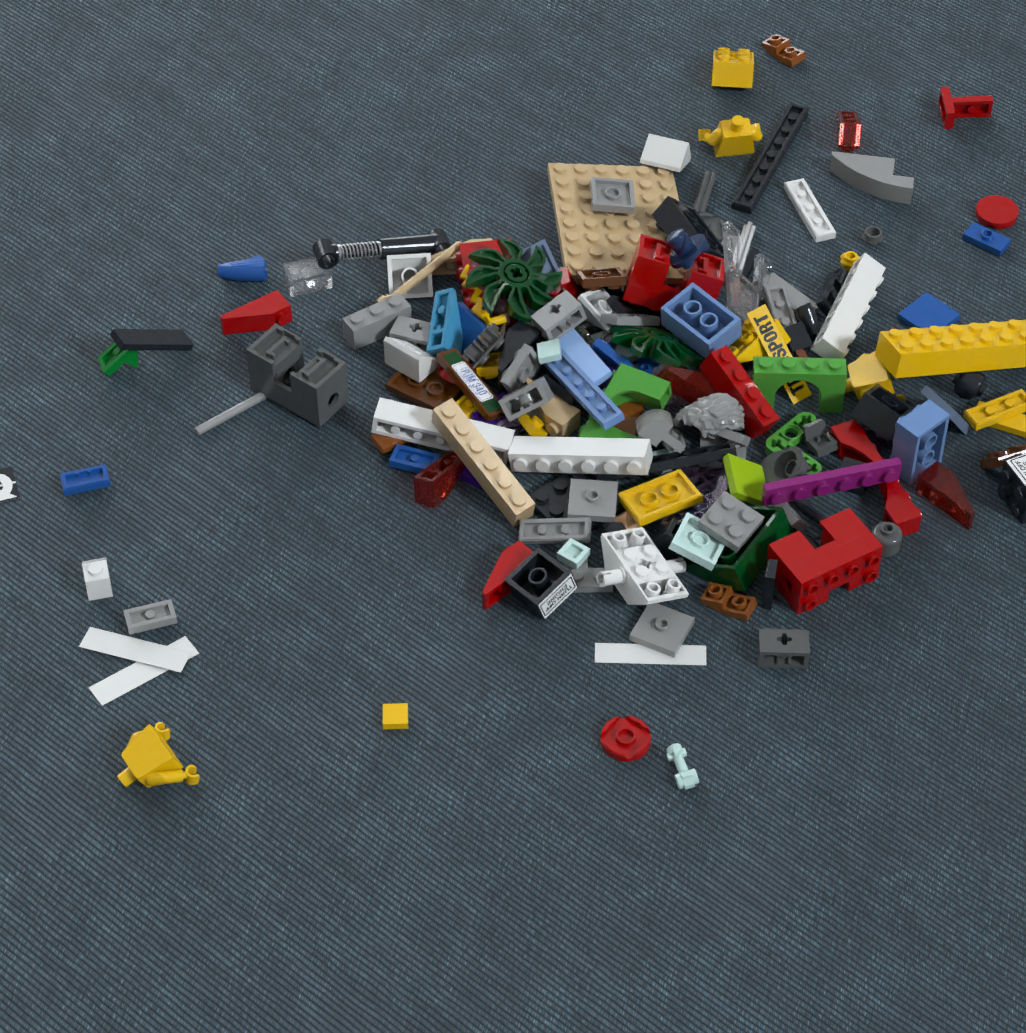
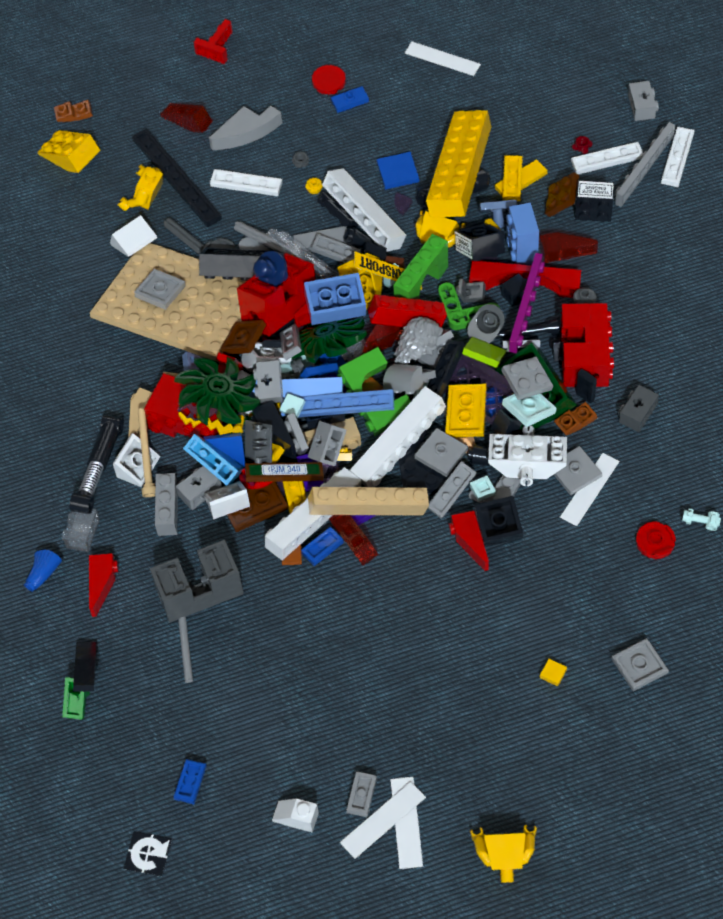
camera: 55 degrees left, 10 degrees up
(454, 787) = (639, 664): none -> light grey plate

